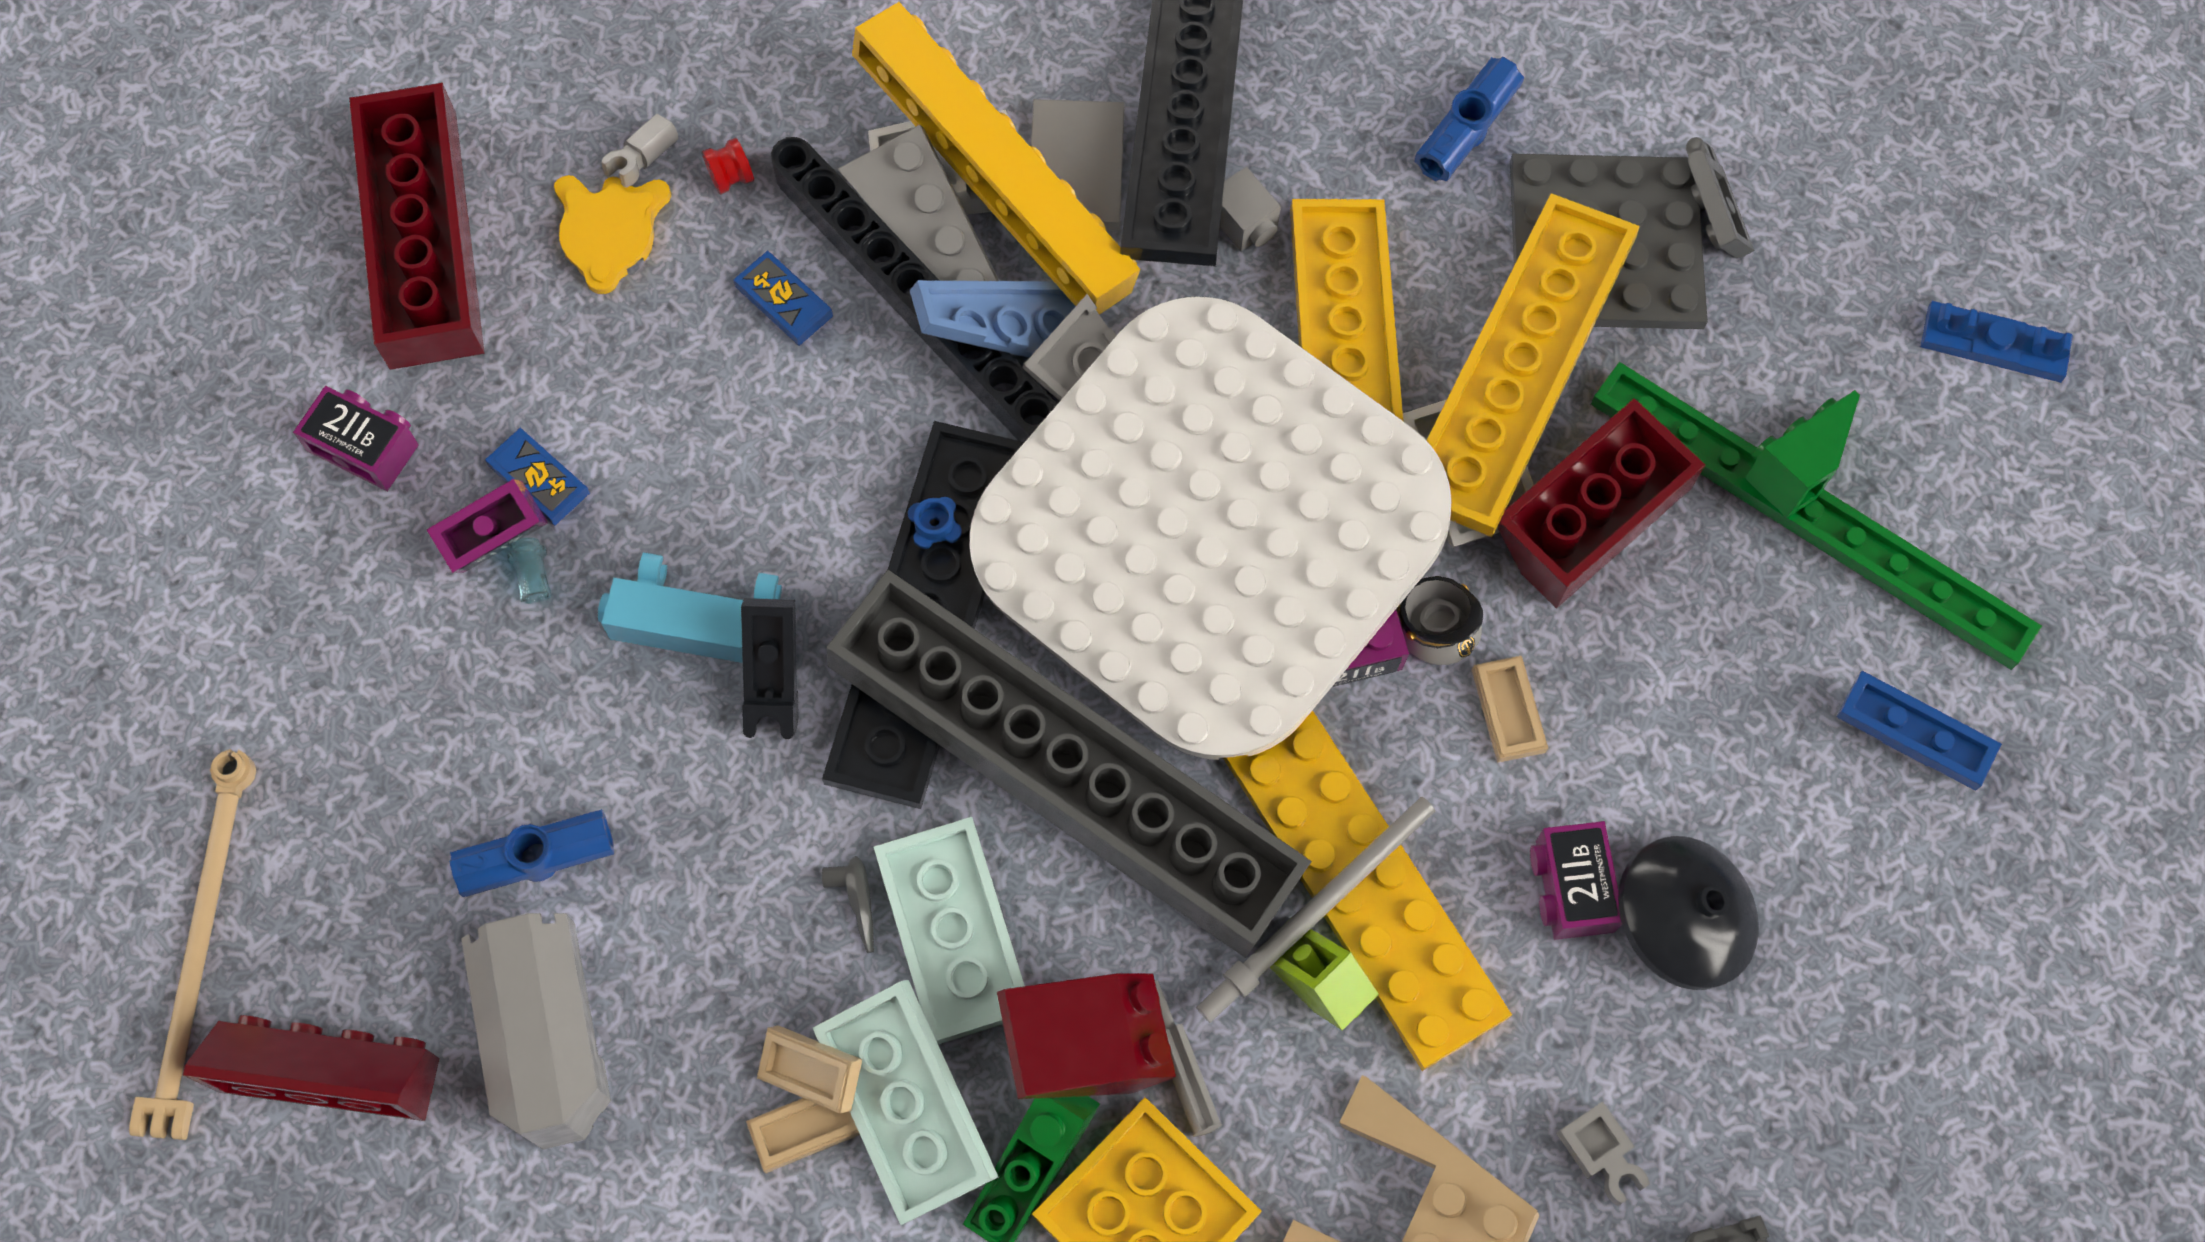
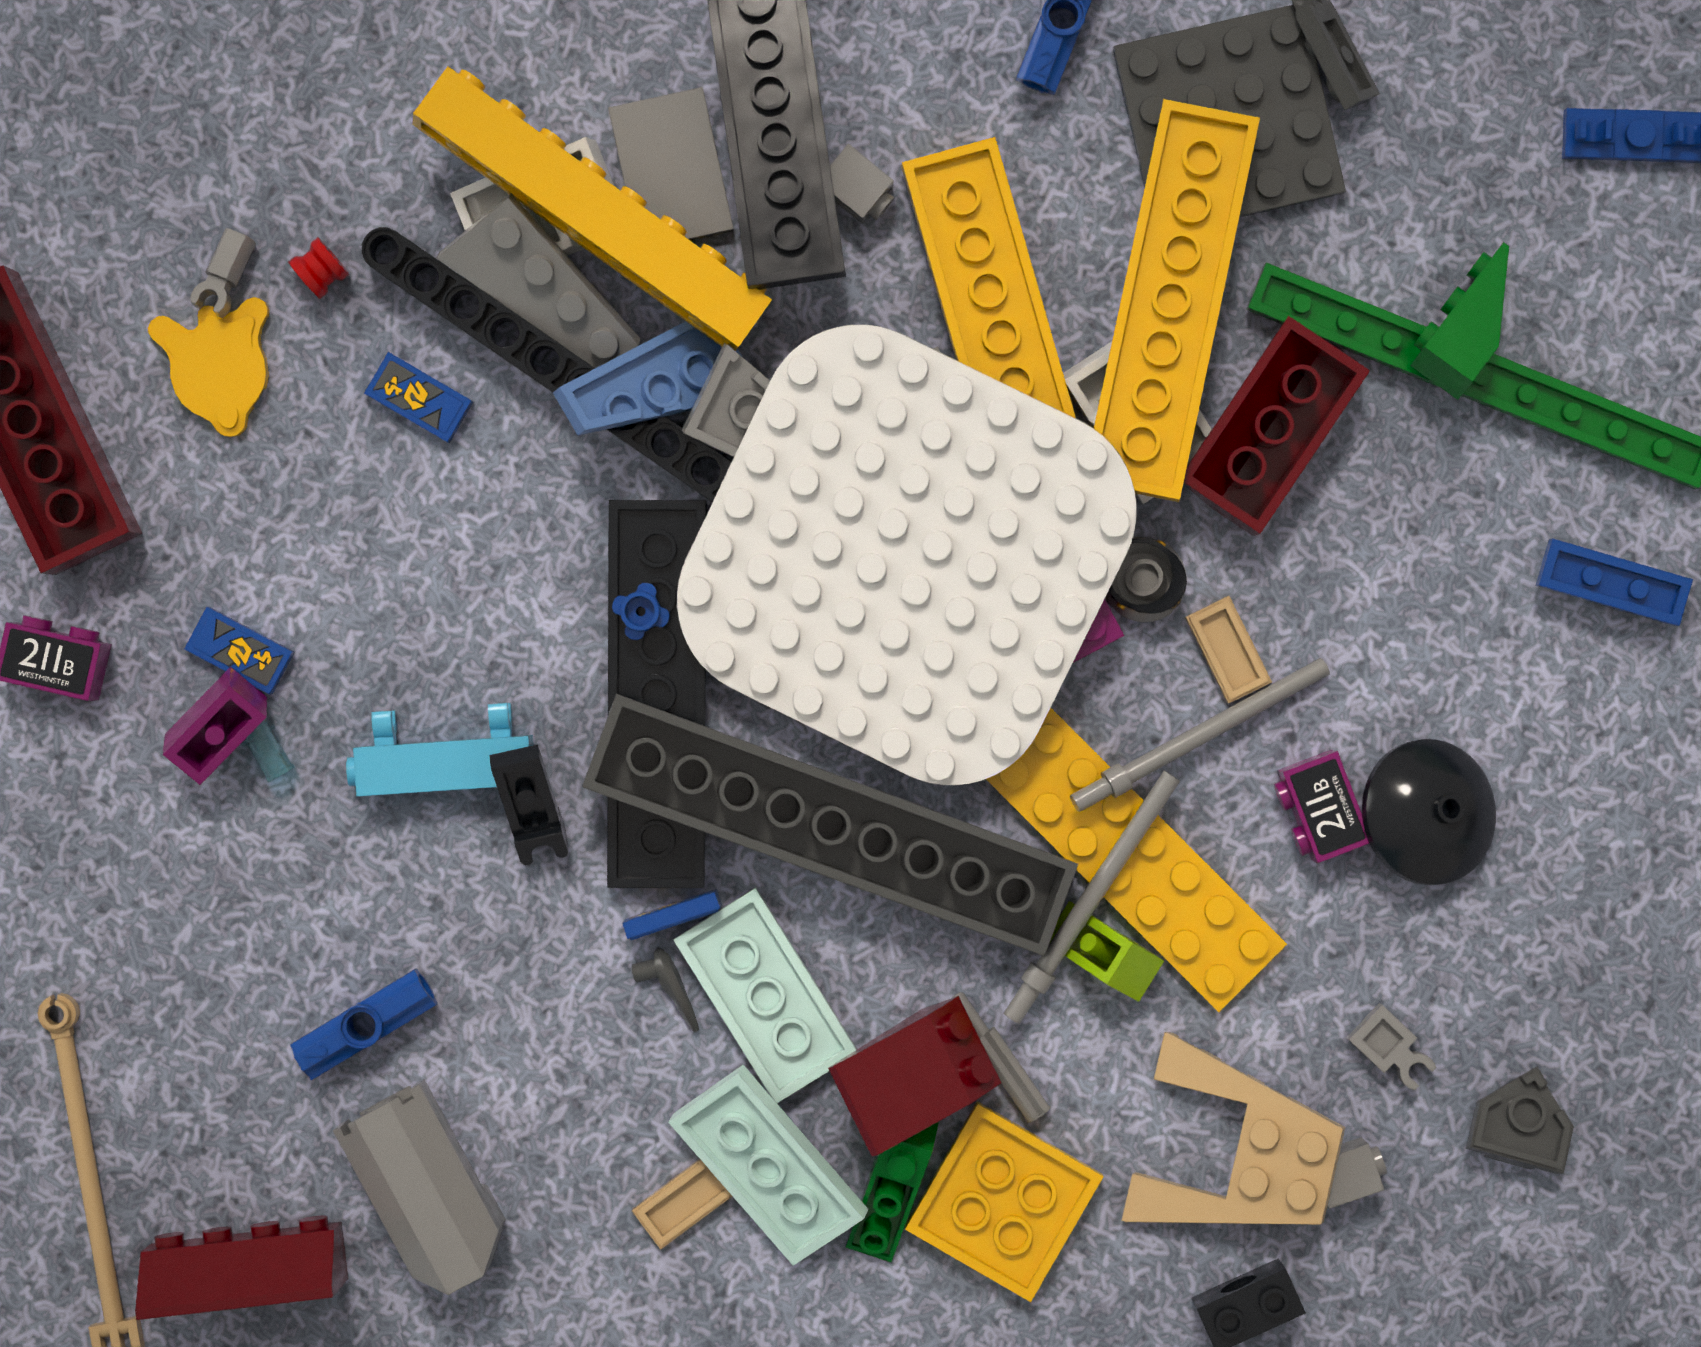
camera: 20 degrees left, 20 degrees up
(809, 1069) = (675, 1156): tan tile -> none
(878, 822) = (672, 914): none -> blue tile
(1373, 796) = (1119, 778): none -> light grey bar

